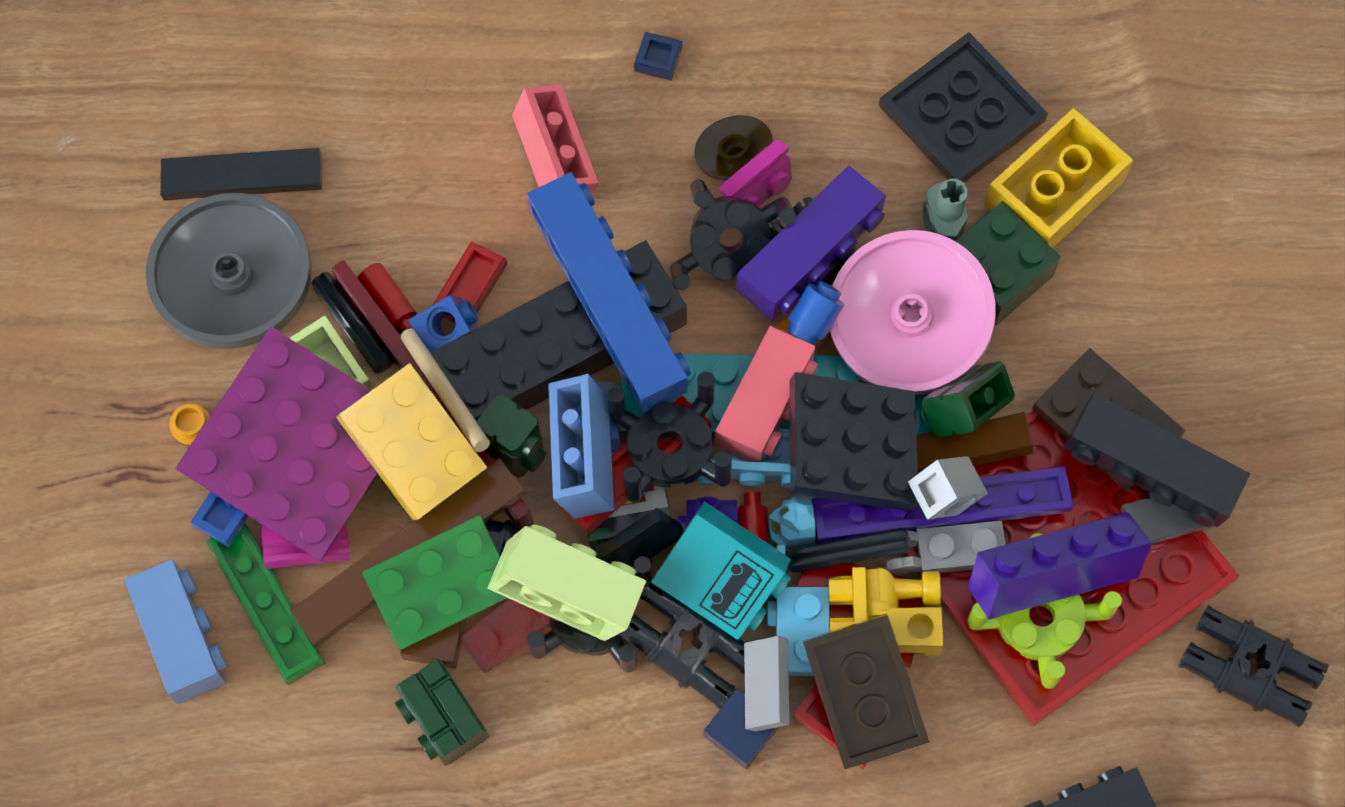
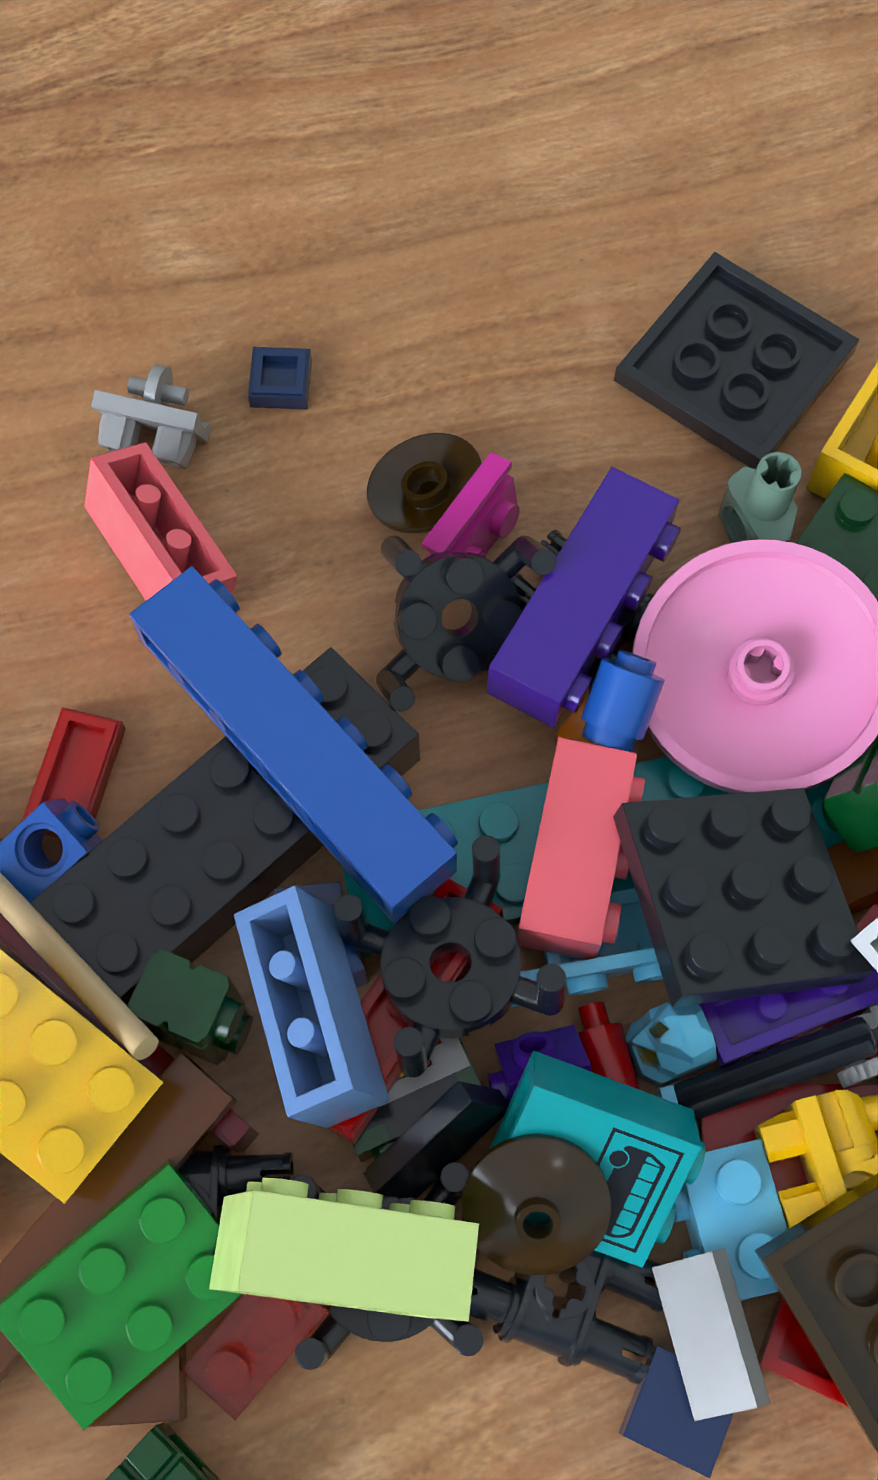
camera: 15 degrees left, 0 degrees up
(581, 78) = (175, 427): none -> light grey hips
(696, 570) = (529, 1177): none -> dark brown dish

